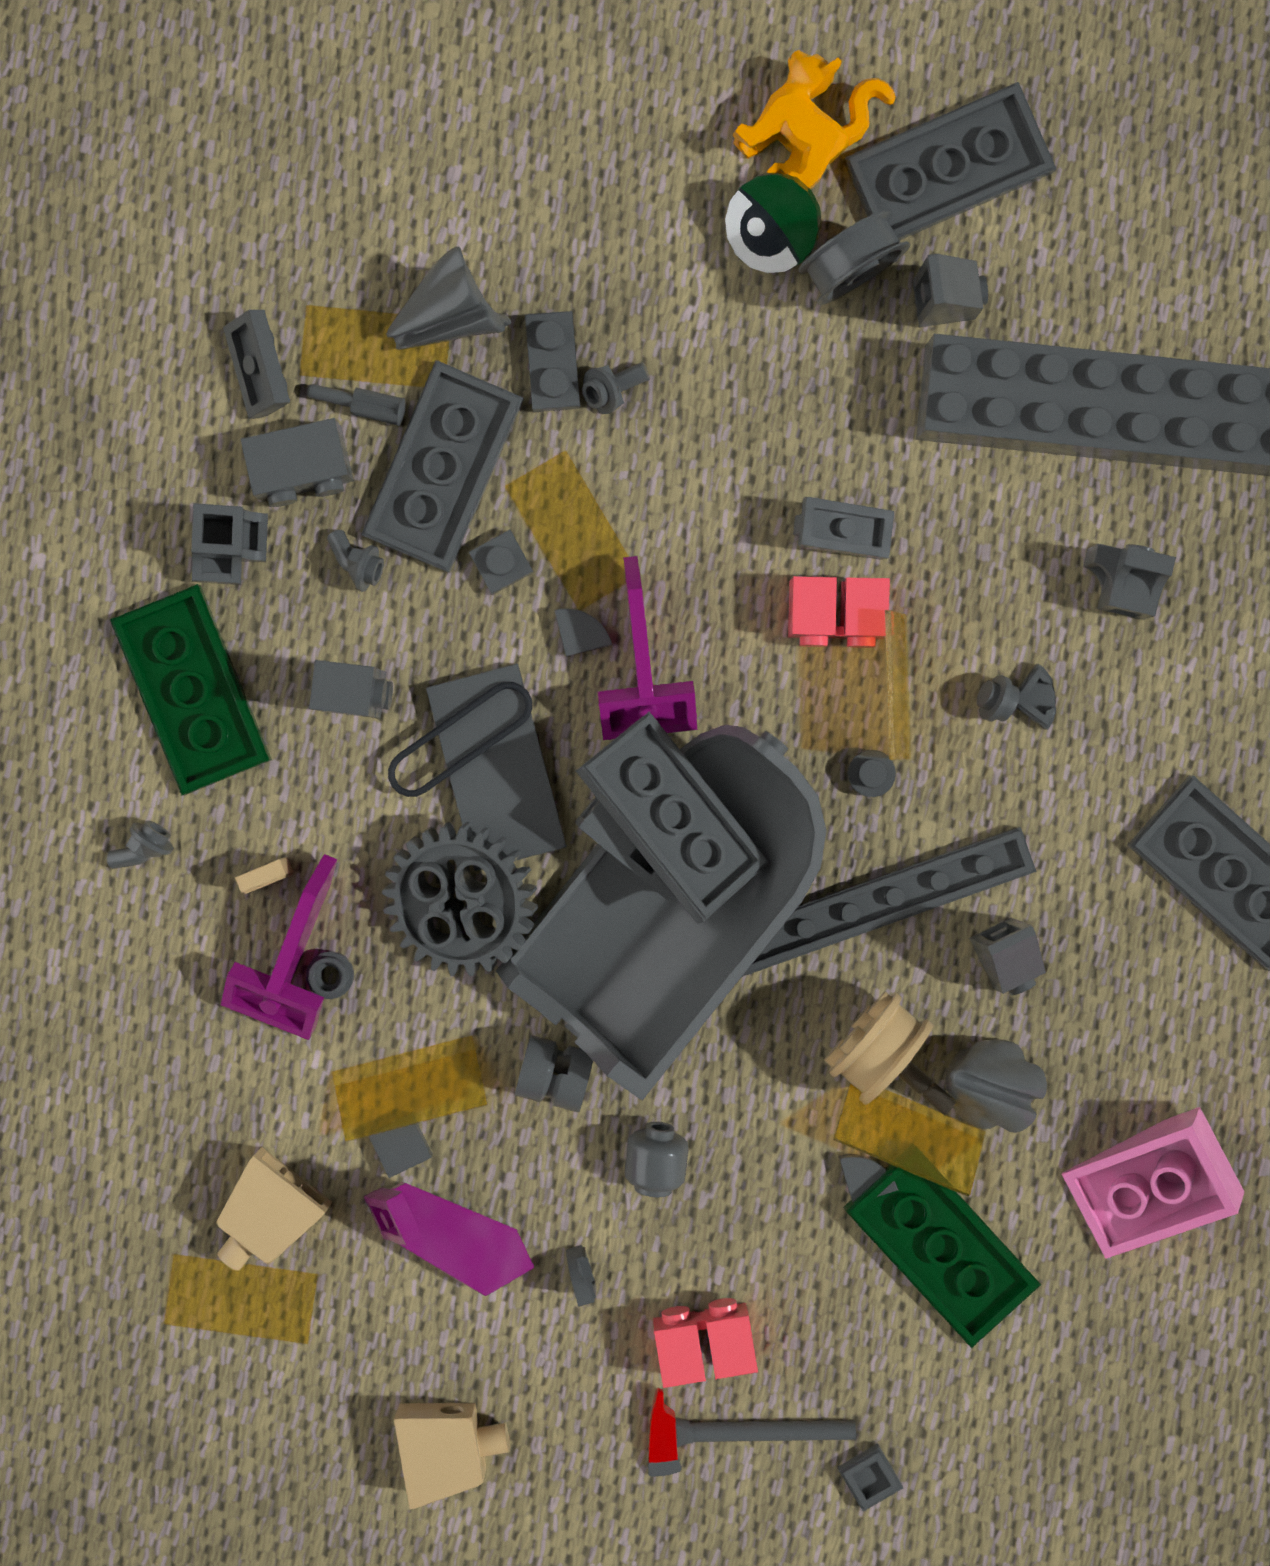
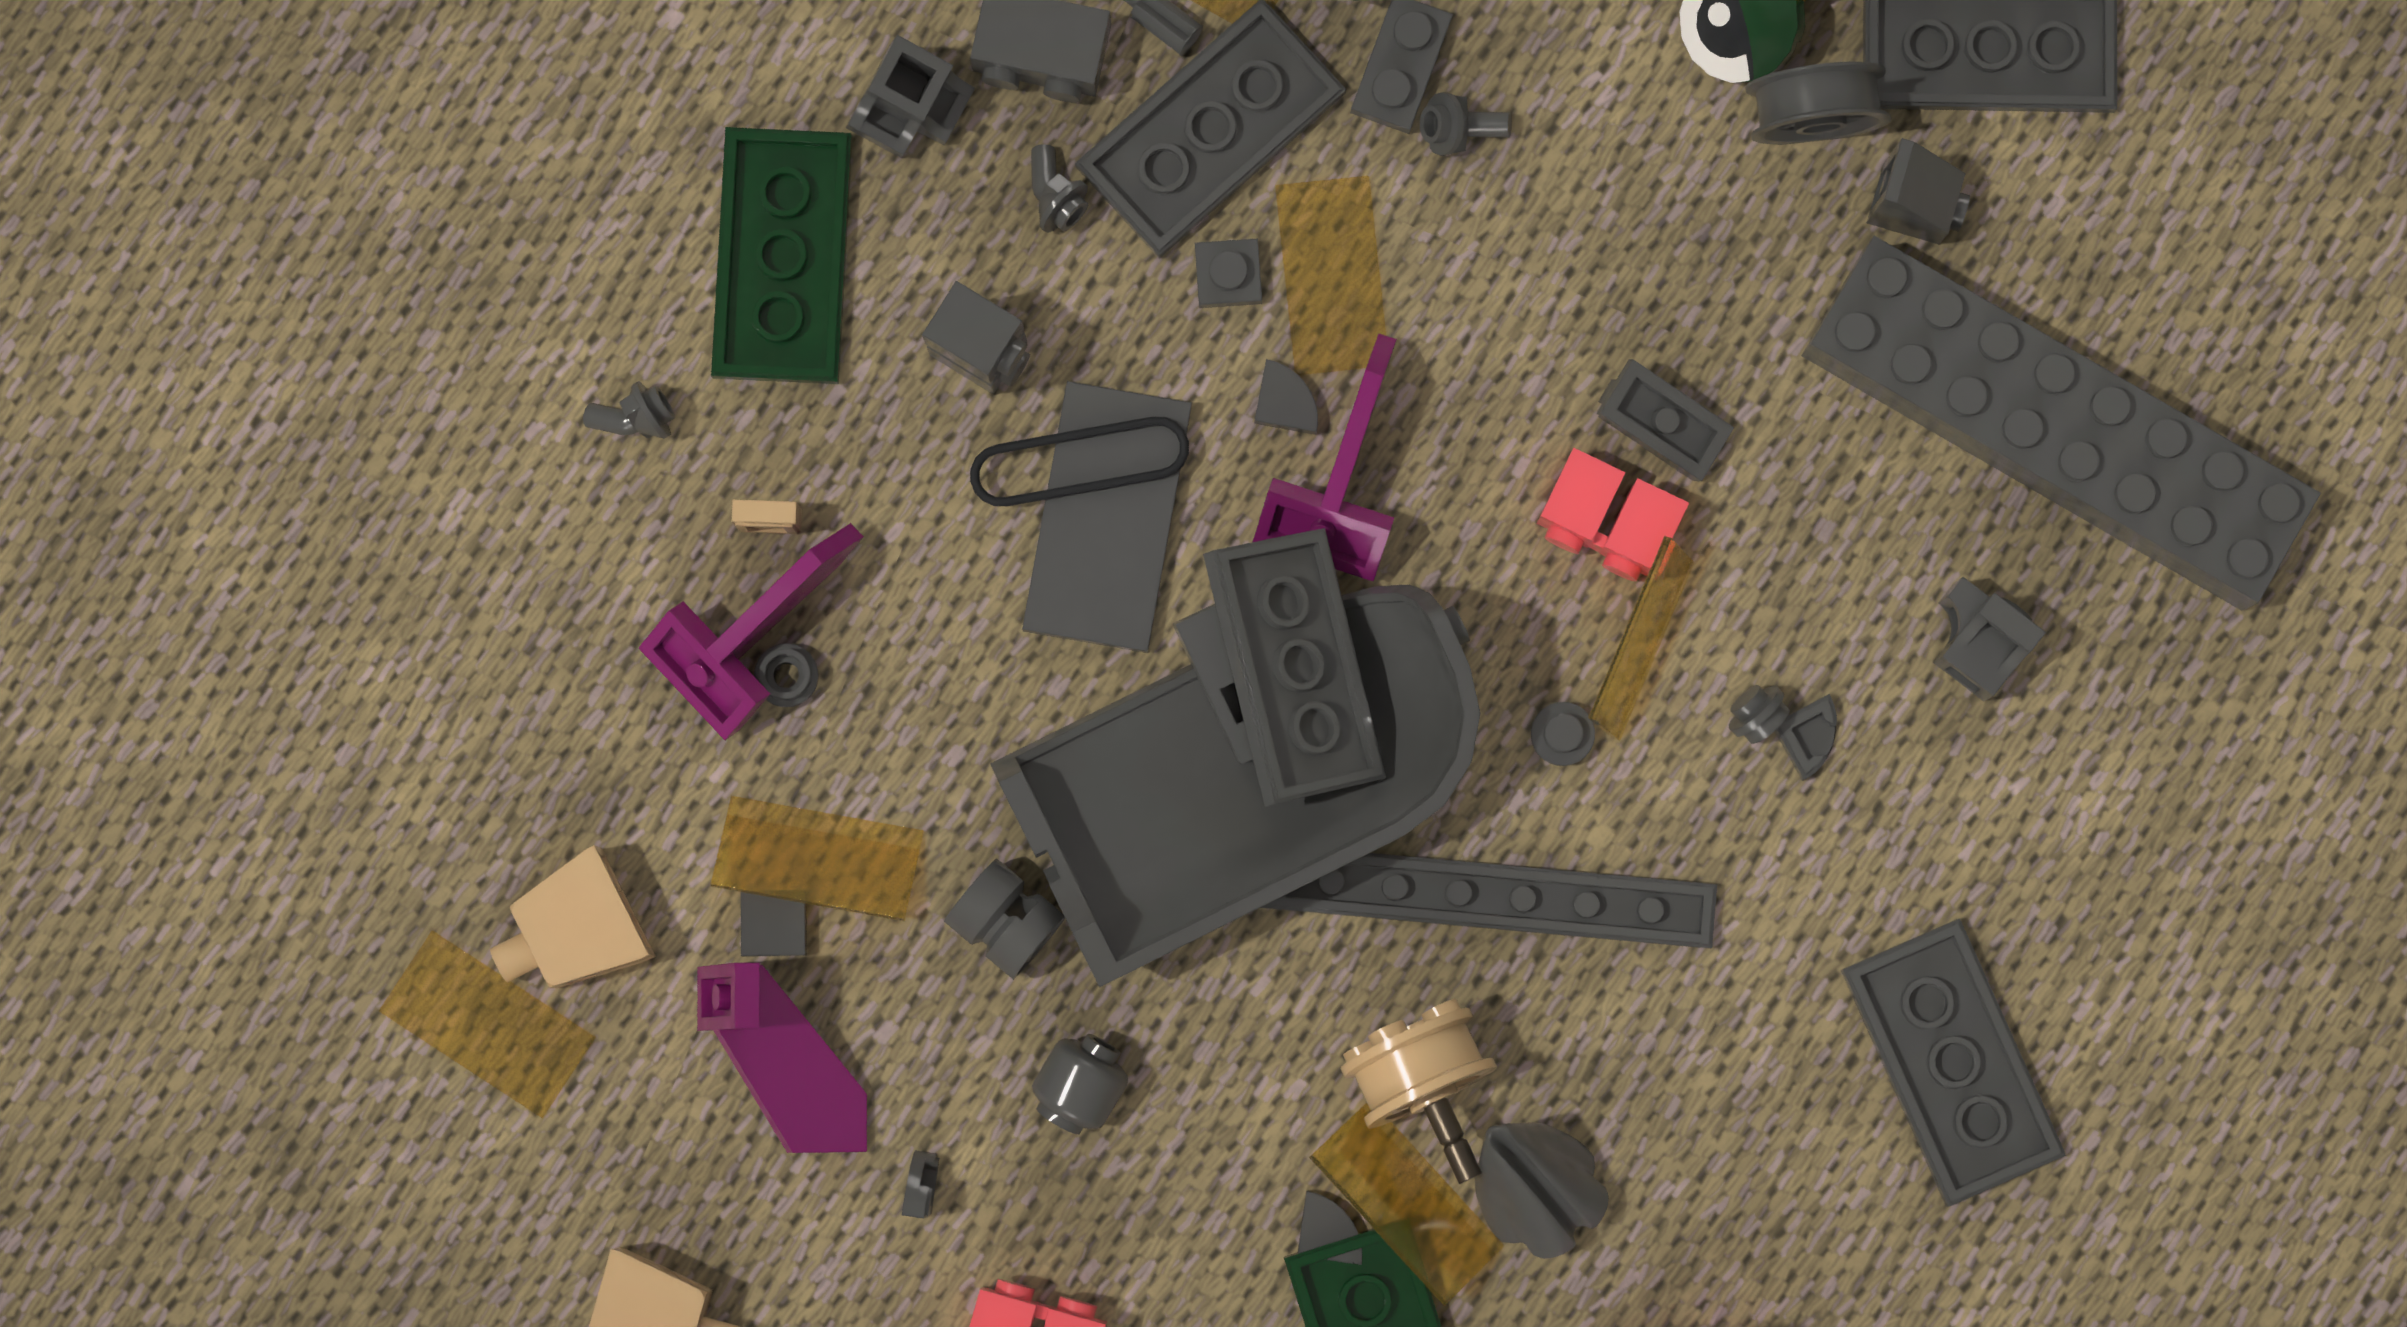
camera: 25 degrees right, 5 degrees down
(500, 896) = (937, 635): dark grey gear -> none
(1010, 956) = (1630, 1034): dark grey slope -> none

